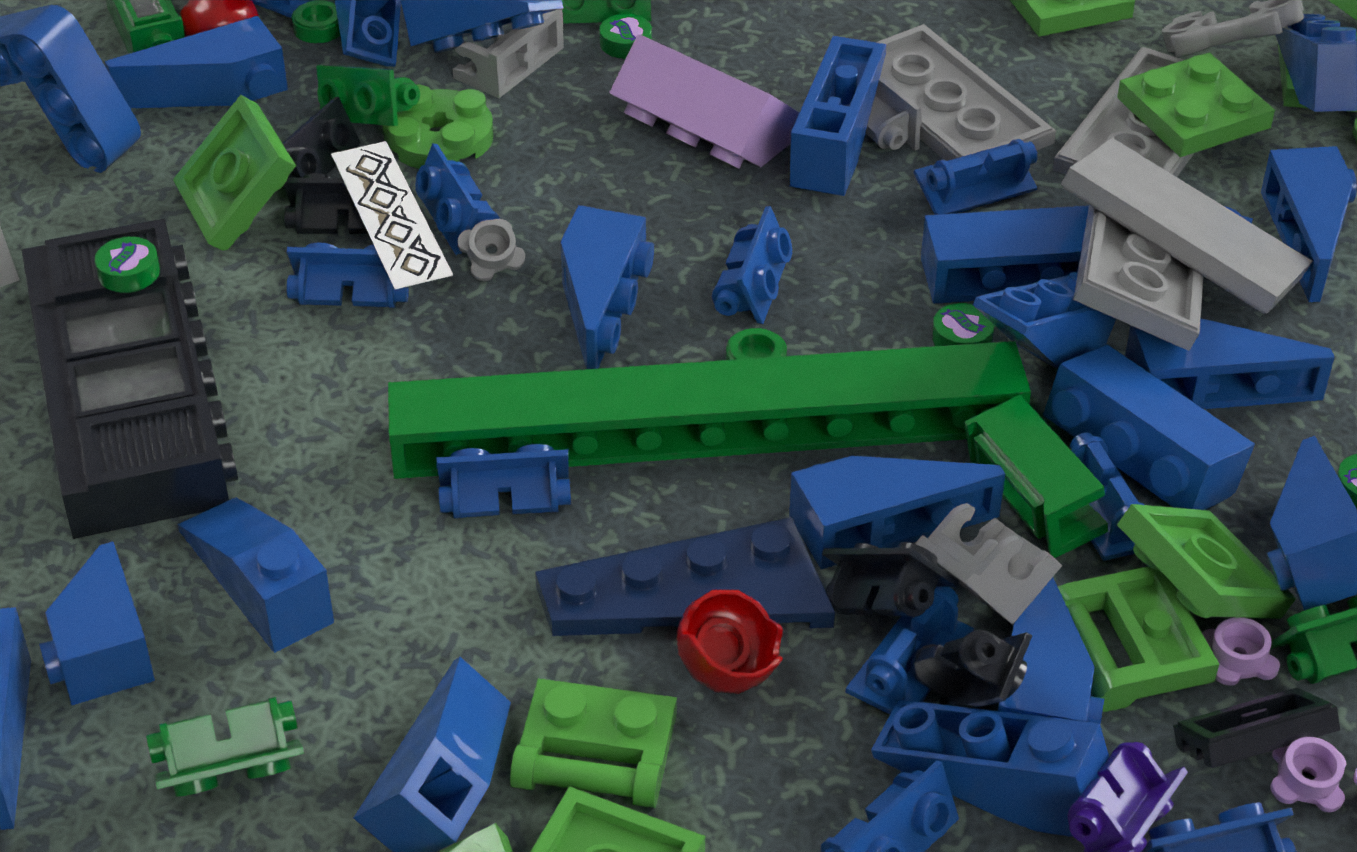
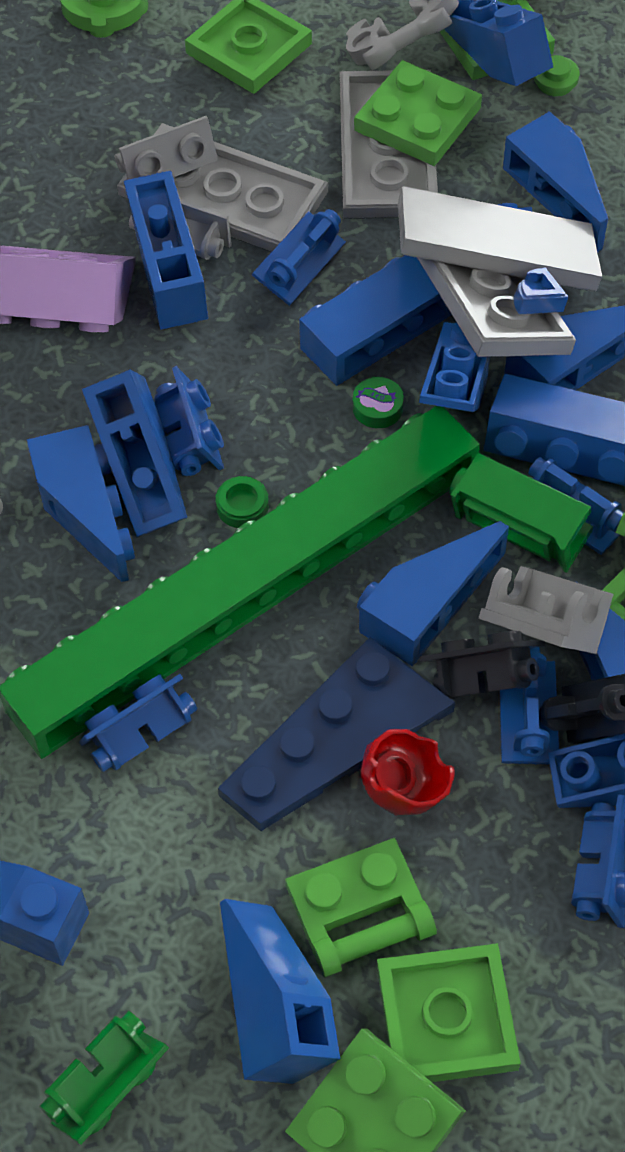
camera: 30 degrees left, 15 degrees up
(681, 258) = (136, 450): none -> blue slope
(911, 40) = (175, 149): none -> light grey hinge
(1189, 279) = (539, 294): none -> blue tile

